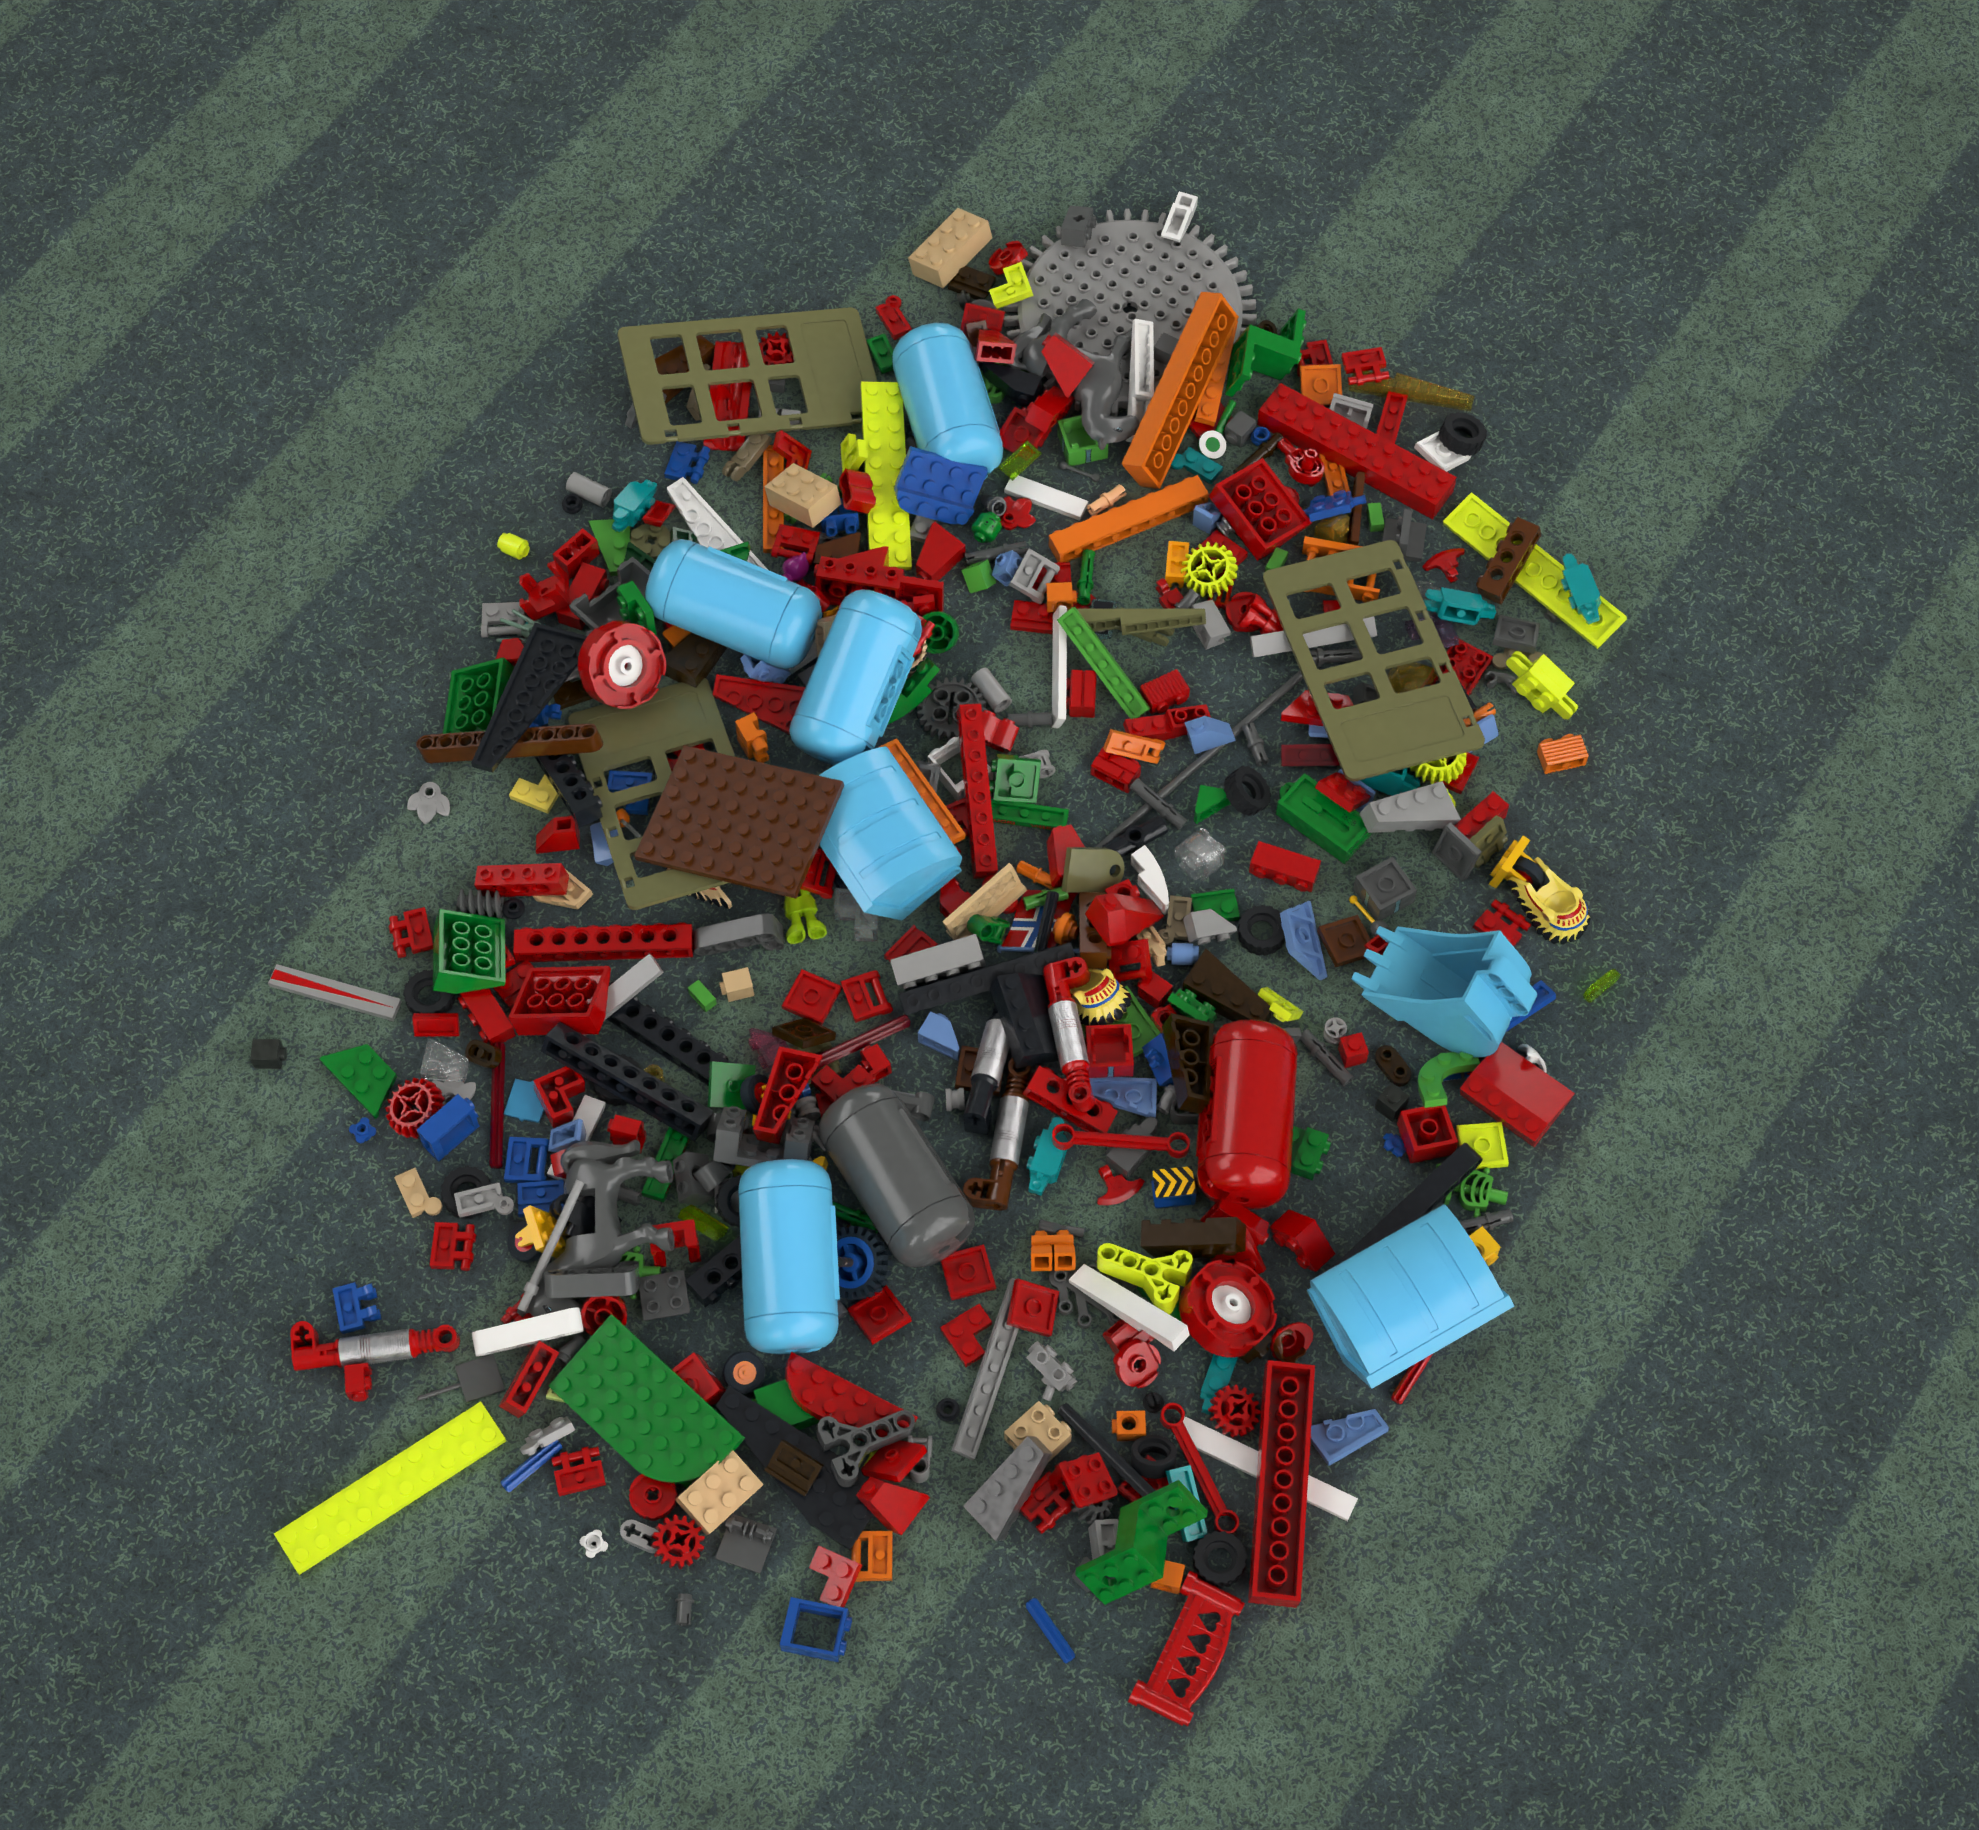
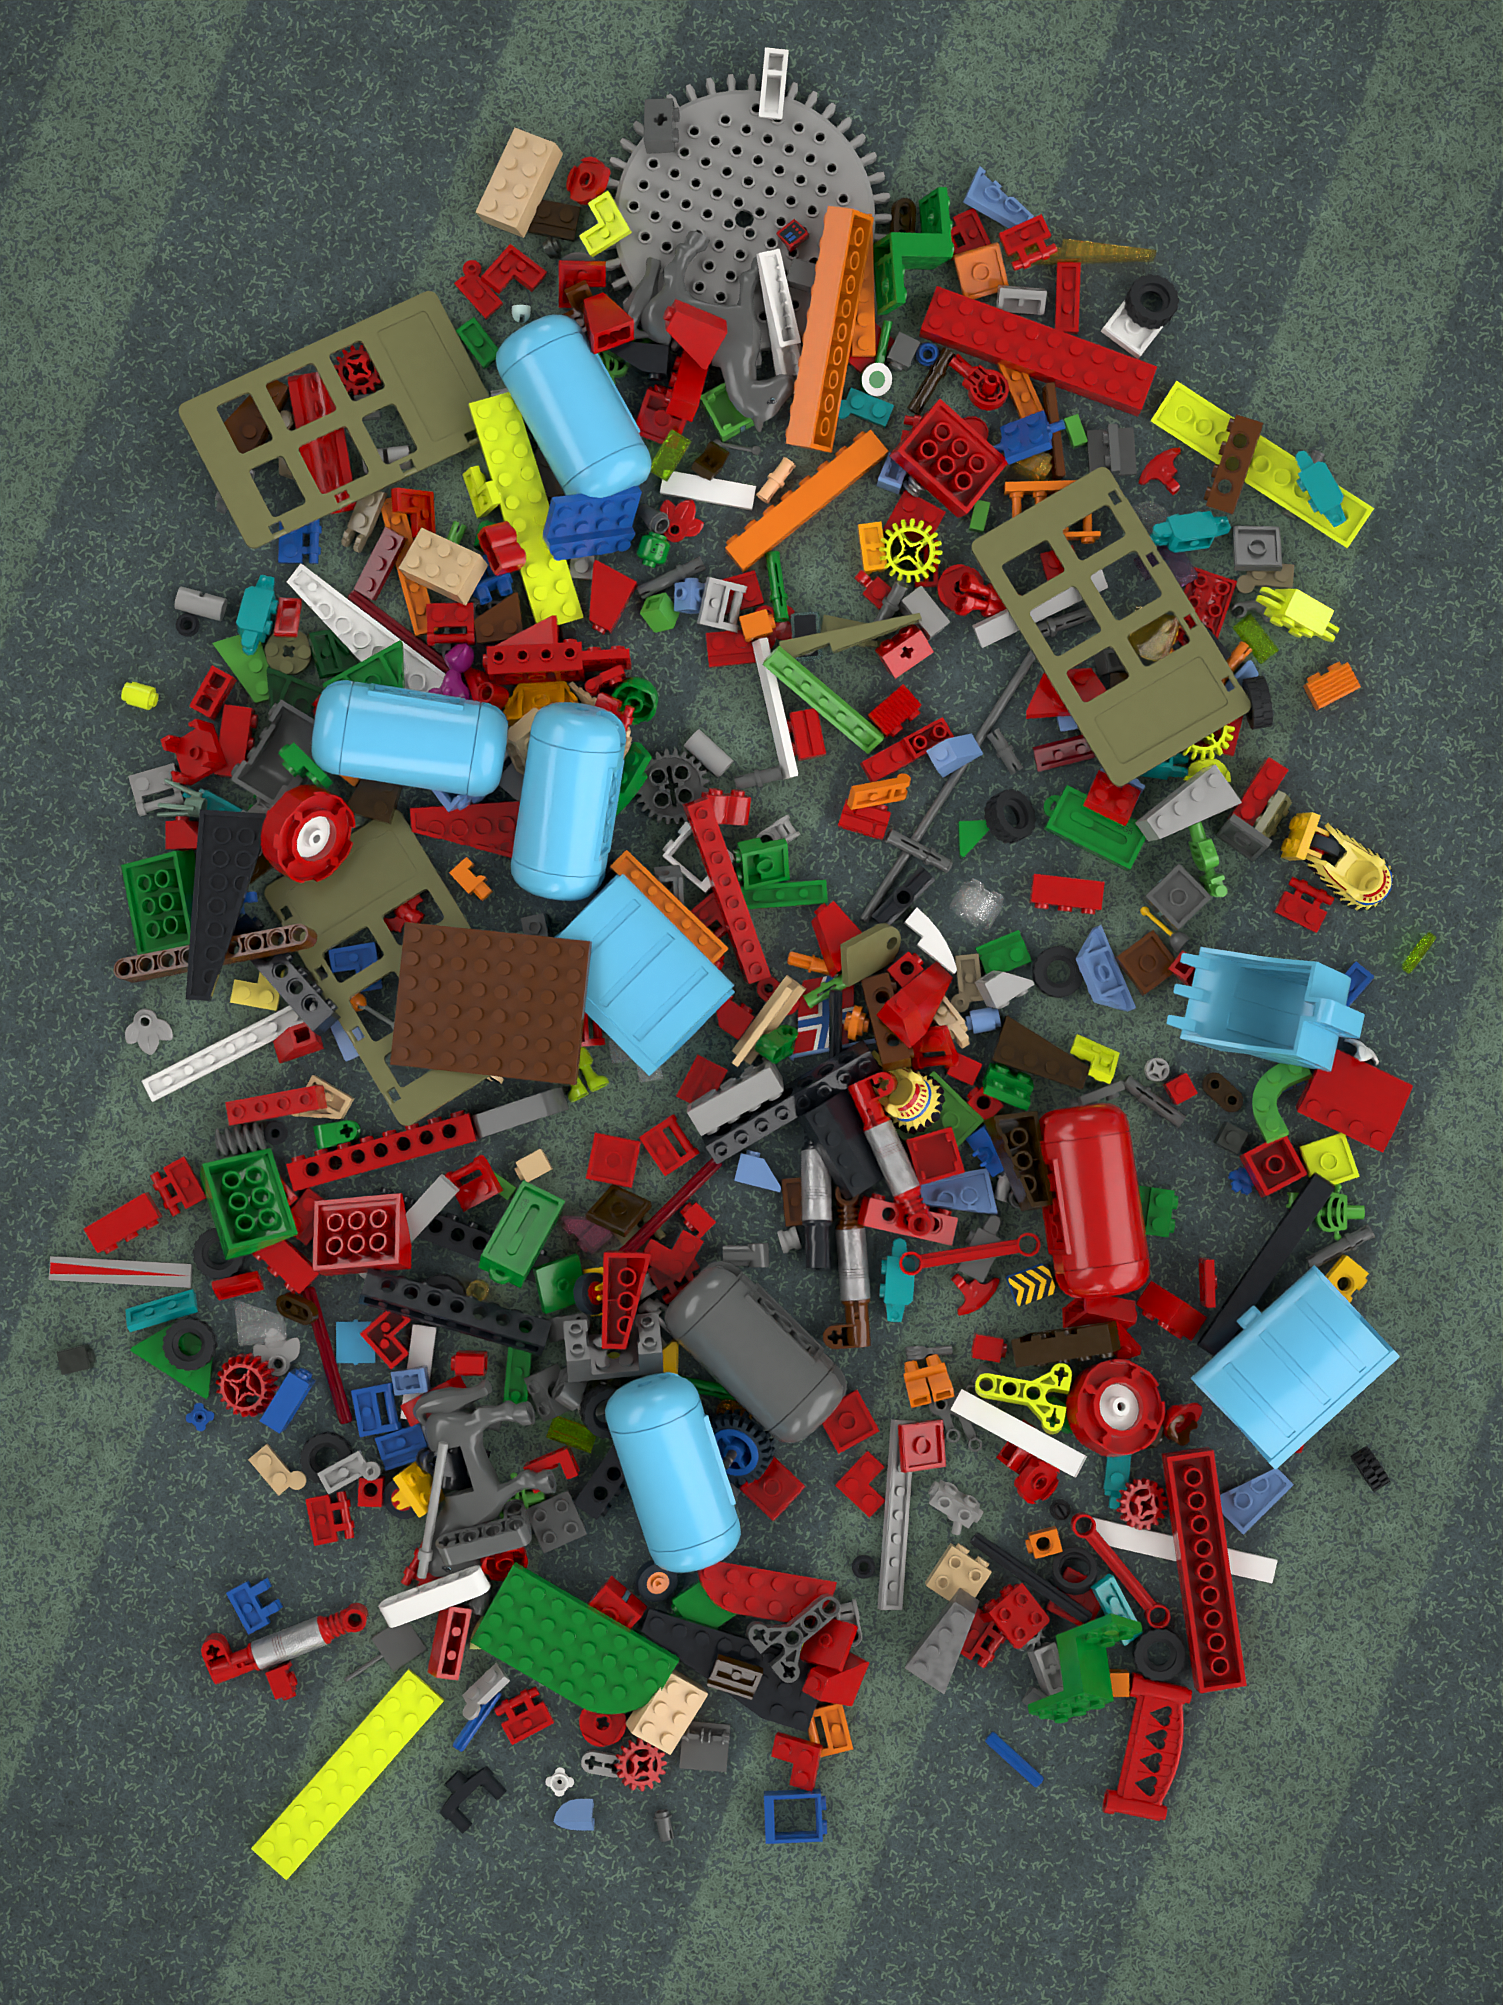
camera: 15 degrees left, 25 degrees up
(351, 950) = (123, 1223): none -> red brick
(359, 1031) = (161, 1310): none -> teal plate
(380, 1075) = (172, 1349): none -> black tyre
(482, 836) = (221, 1053): none -> white tile
(496, 1525) = (461, 1788): none -> black connector
(498, 1238) = (368, 1500): none -> red brick
(565, 916) = (332, 1133): none -> green piece
(599, 1579) = (576, 1815): none -> medium blue brick
(680, 991) = (477, 1189): none -> red plate
(708, 1028) = (521, 1234): none -> green piece
(744, 537) = (399, 630): none -> dark red axle
(749, 490) = (380, 563): none -> plate
(926, 304) = (513, 265): none -> red plate
(1055, 475) = (711, 461): none -> dark brown bracket
(1118, 1233) = (988, 1347): none -> red brick
(1168, 323) = (793, 235): none -> slope
(1196, 645) = (898, 660): none -> brick
(1340, 336) = (994, 203): none -> medium blue wing
(1343, 1219) = (1207, 1282): none -> red plate
(1417, 861) = (1206, 859): none -> bright green torso
(1467, 1427) = (1370, 1468): none -> black tyre
(1492, 751) = (1261, 710): none -> black tyre
(1505, 710) = (1257, 639): none -> clear neon green tile

